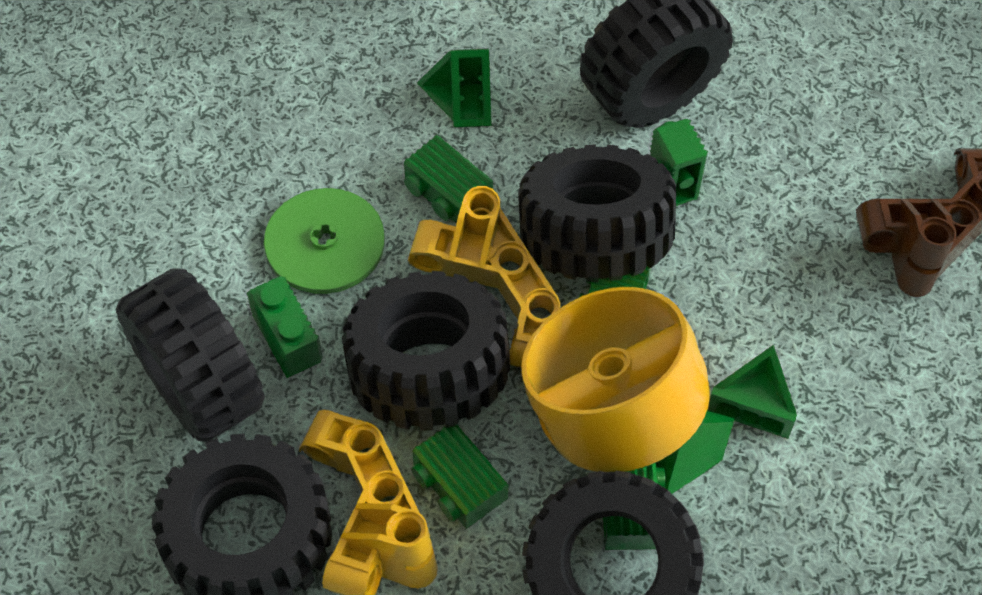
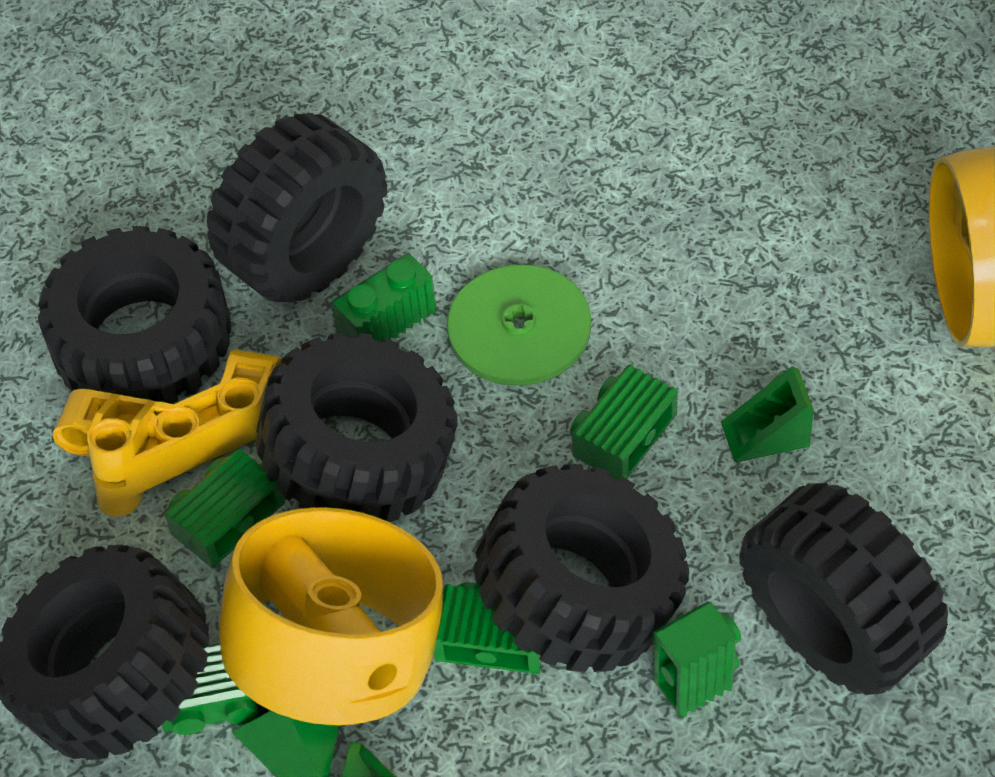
camera: 85 degrees right, 5 degrees down
(476, 250) = (512, 443): yellow connector -> none

